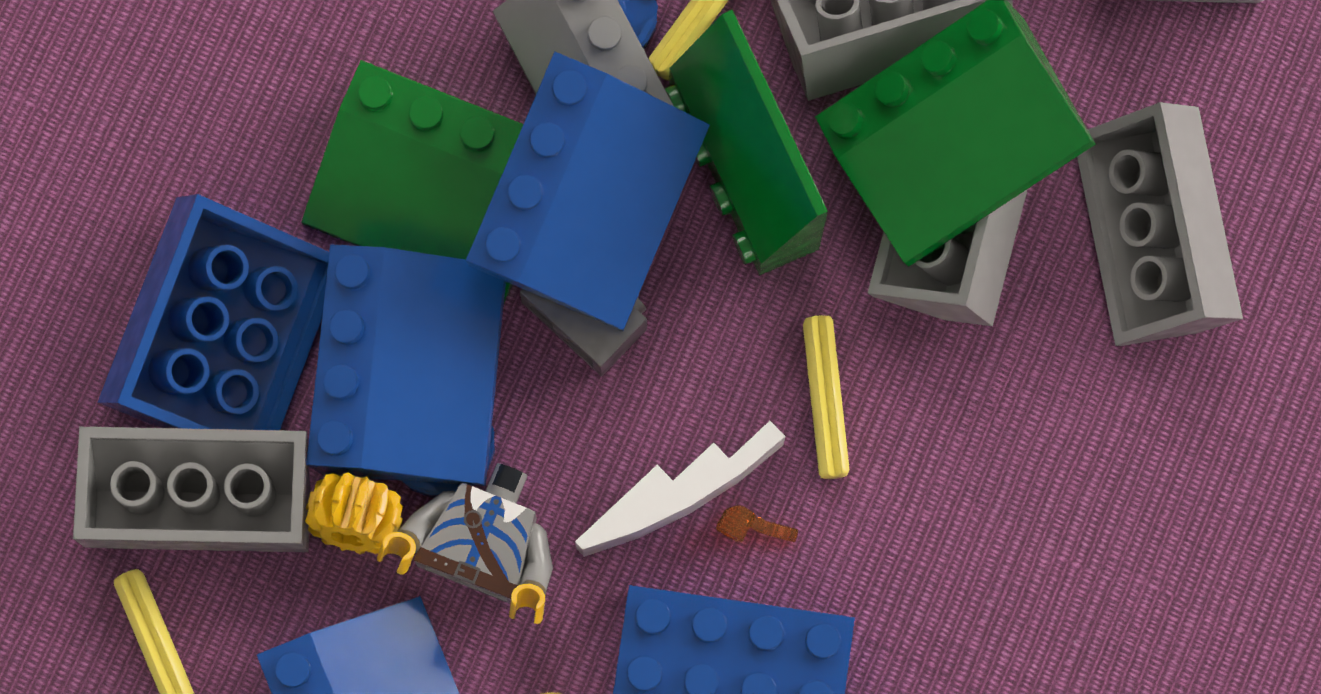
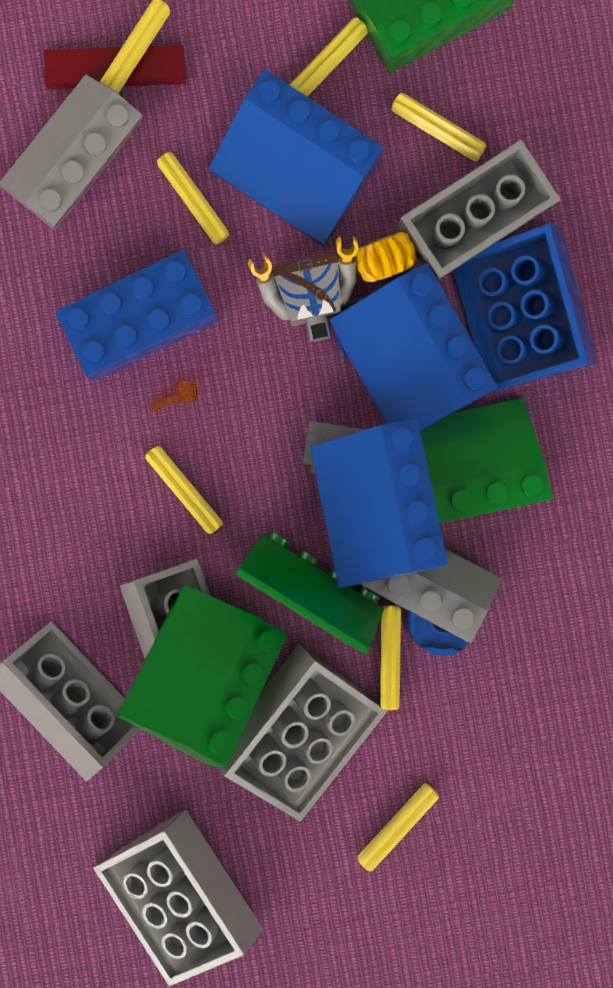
camera: 145 degrees right, 10 degrees up
(660, 500) = (230, 376): white slope -> none

